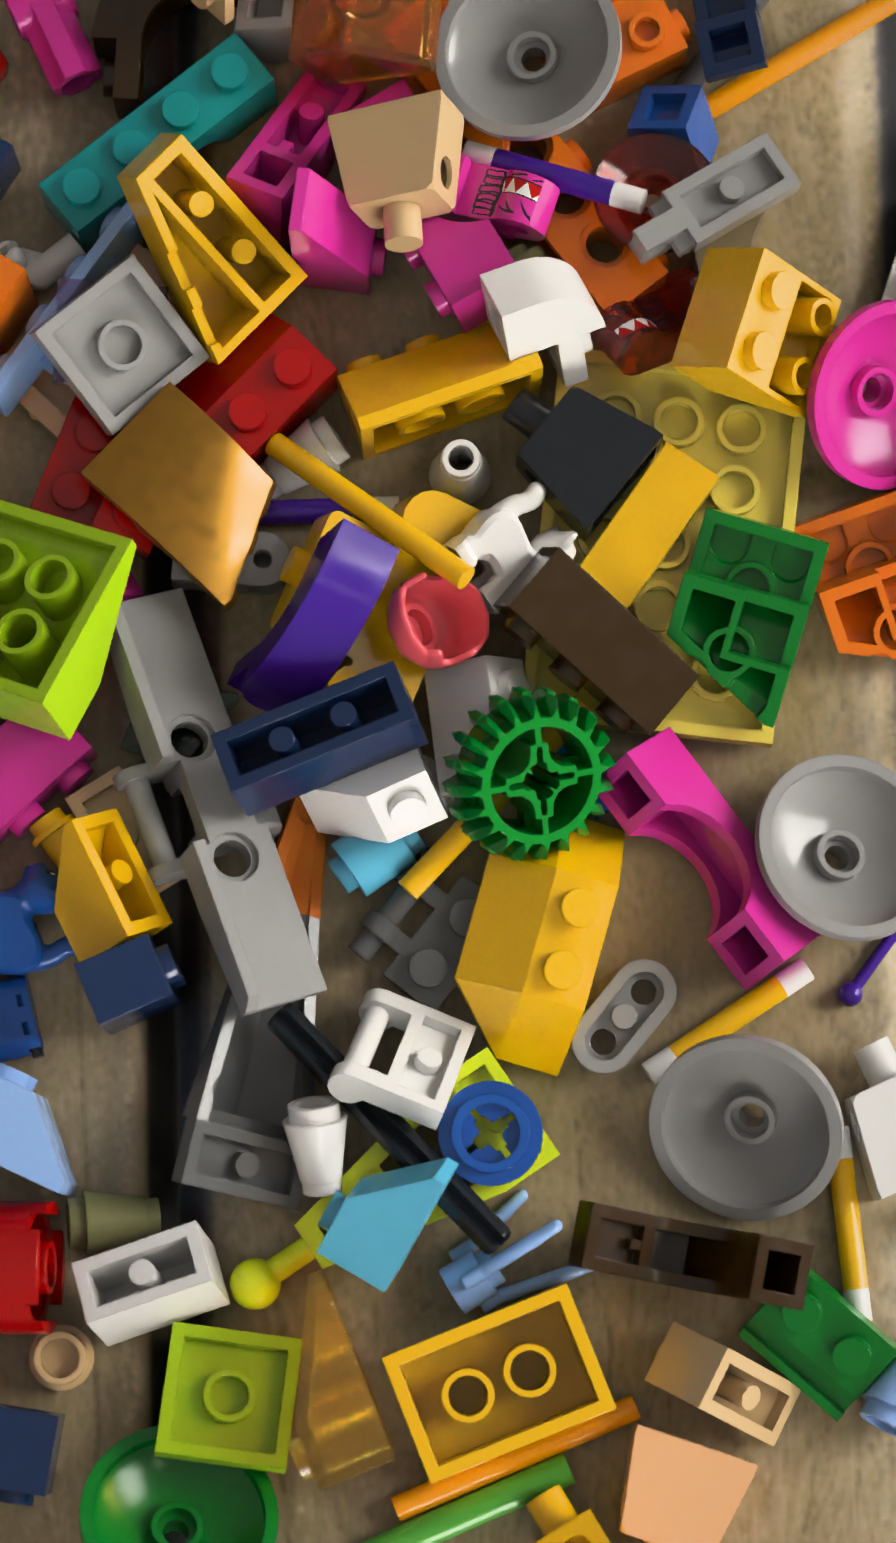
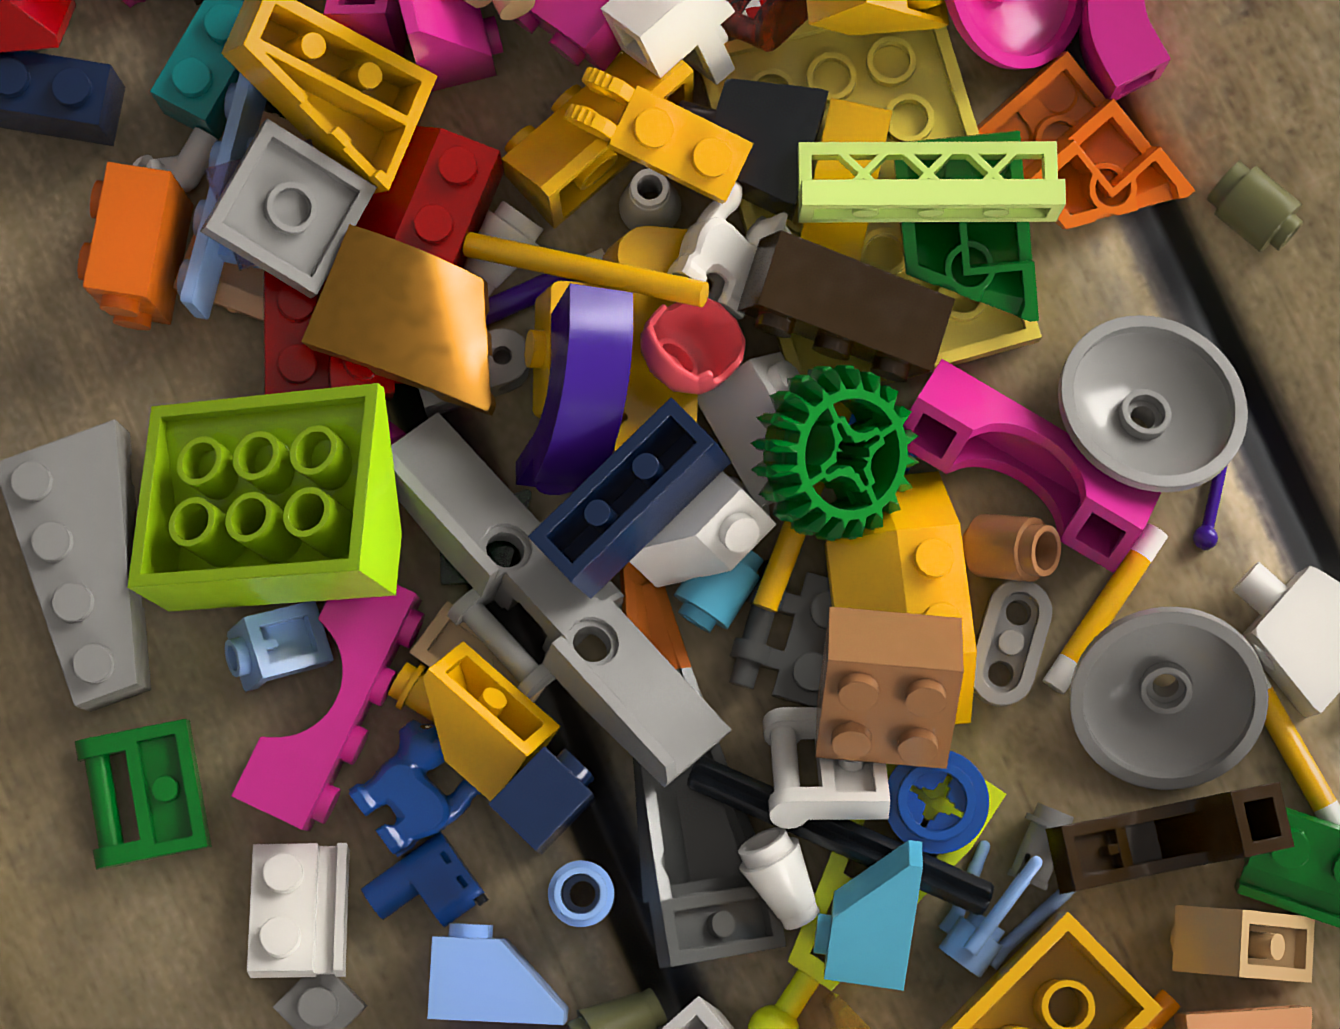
camera: 20 degrees left, 0 degrees up
(112, 1073) = (561, 886): none -> light blue brick
(485, 1009) = (889, 687): none -> medium nougat brick
(490, 418) = (664, 137): none -> yellow hinge
(567, 1212) = (1036, 843): none -> light grey pin
(660, 928) = (1011, 547): none -> medium nougat brick
(713, 570) = (928, 196): none -> yellowish green fence

